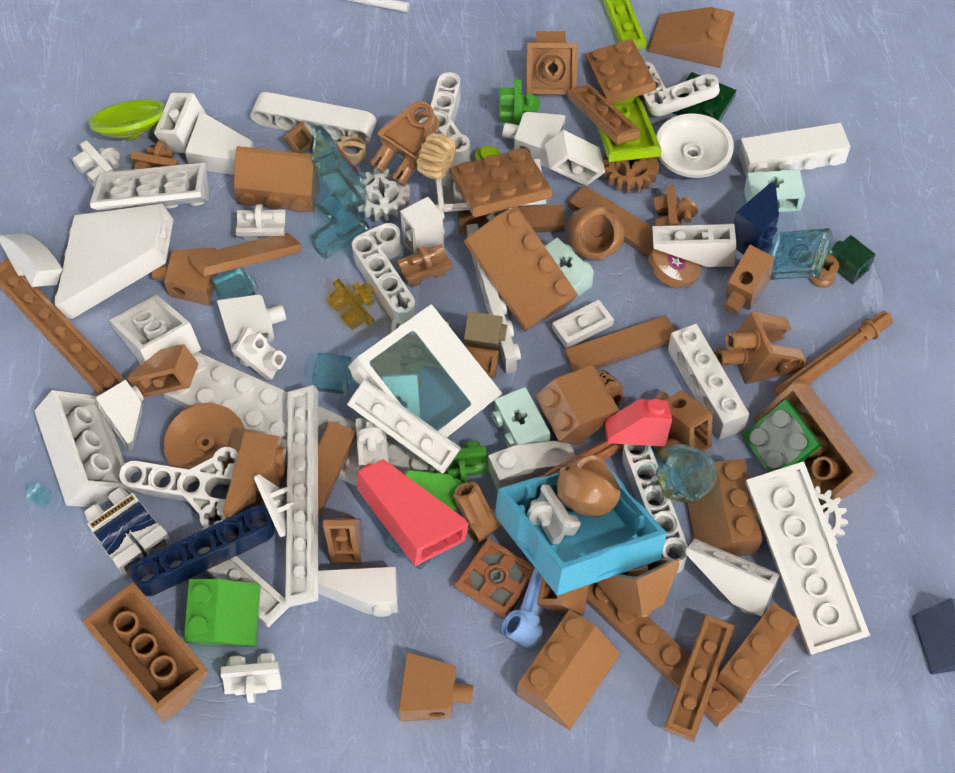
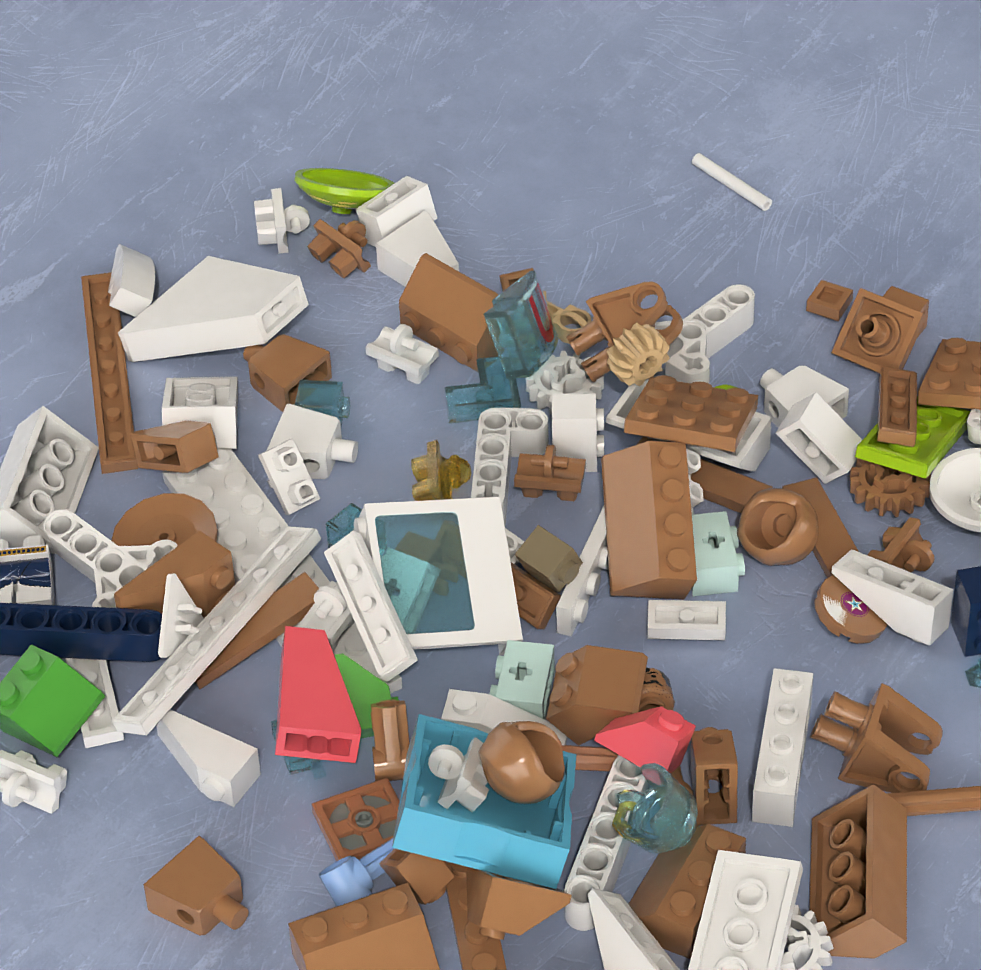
camera: 35 degrees right, 15 degrees down
(123, 411) = (104, 467): white slope -> none
(152, 186) = (321, 266): white slope -> none
(245, 254) = (357, 372): medium nougat tile -> none
(286, 112) = (558, 273): white beam -> none
(344, 539) = (226, 691): medium nougat slope -> none
(468, 461) = (423, 689): bright green hips -> none
(499, 57) = (829, 300): none -> medium nougat plate
(514, 104) = (802, 348): bright green hips -> none
(620, 344) = (714, 663): medium nougat tile -> none
(748, 280) = (927, 662): medium nougat torso -> none
(781, 438) = (822, 843): light grey piece -> none

